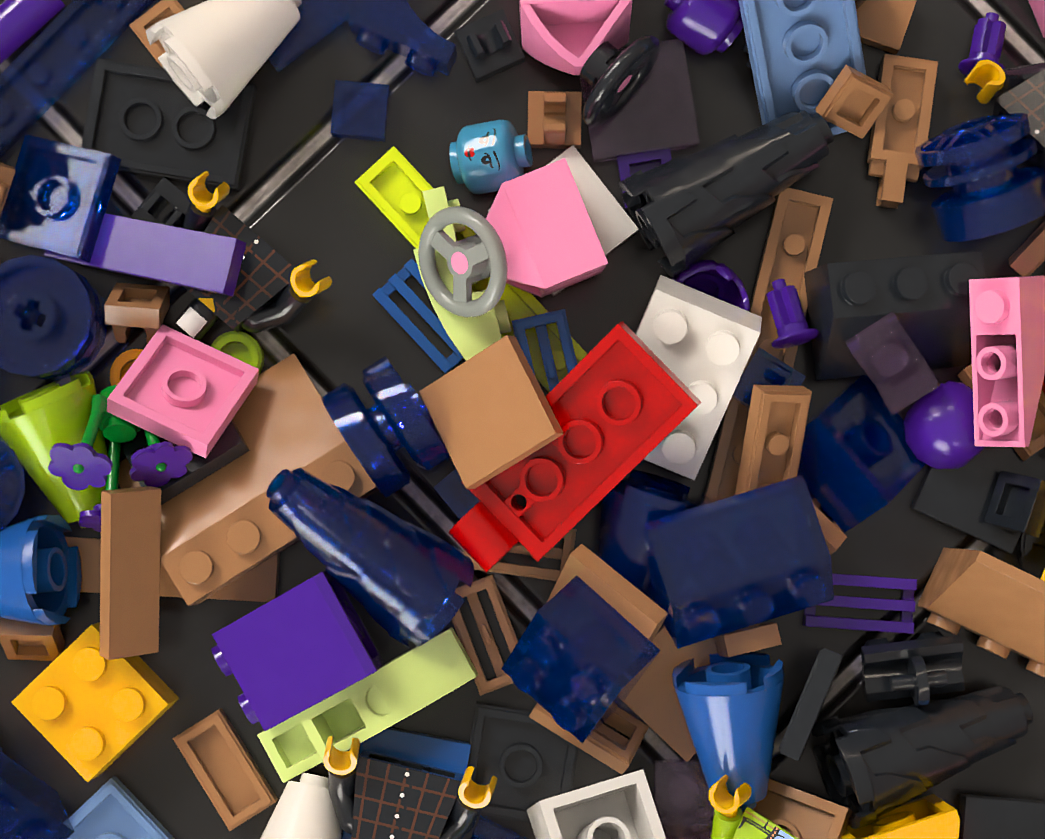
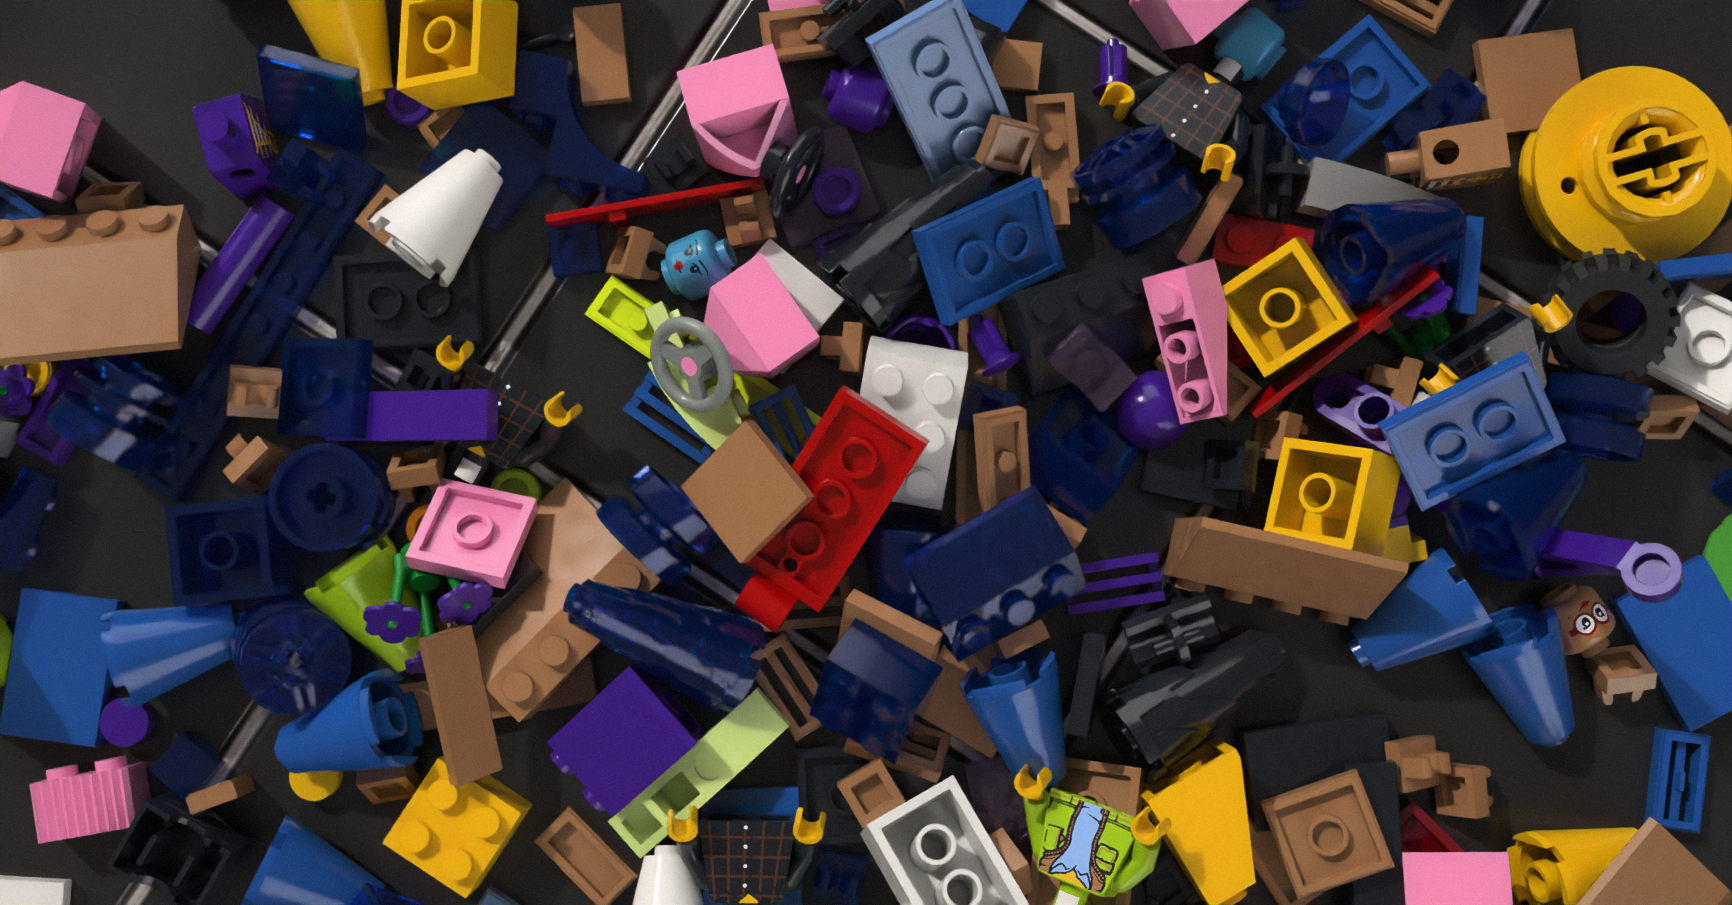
camera: 10 degrees left, 0 degrees up
(419, 80) = (620, 212): none -> red piece
(419, 128) = (630, 253): none -> medium nougat tile
(550, 767) = (871, 791): none -> medium nougat tile
(633, 284) = (848, 348): none -> medium nougat tile
(657, 111) = (836, 191): none -> dark purple tile
(809, 212) = (989, 250): none -> blue tile

